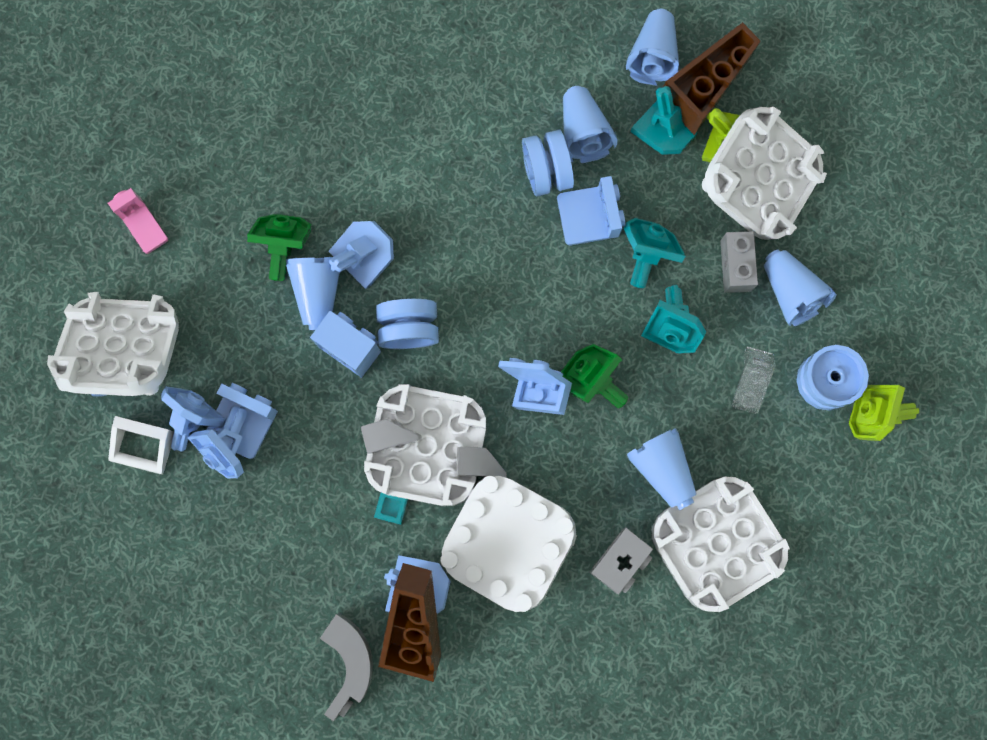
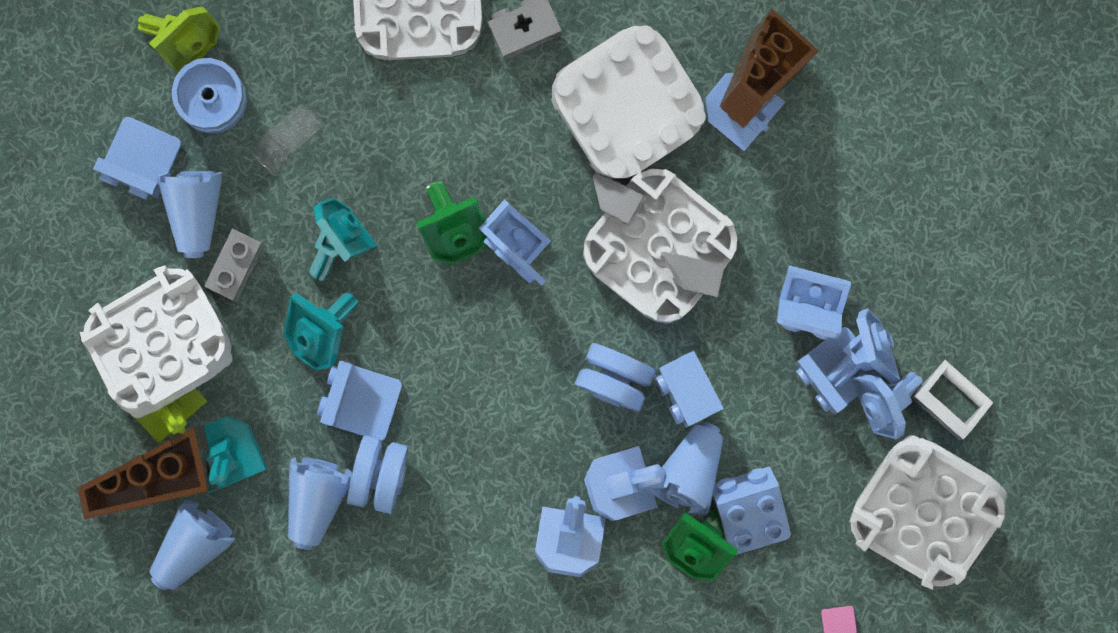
camera: 155 degrees left, 5 degrees up
(256, 284) = (751, 510): none -> light blue bracket
(283, 460) = (812, 303): none -> light blue bracket
(357, 656) = (834, 77): light grey arch -> none
(381, 191) = (569, 539): none -> light blue piece
(391, 508) = (728, 201): teal tile -> none
(666, 468) = (430, 93): light blue cone -> none
(857, 304) = (138, 158): none -> light blue bracket

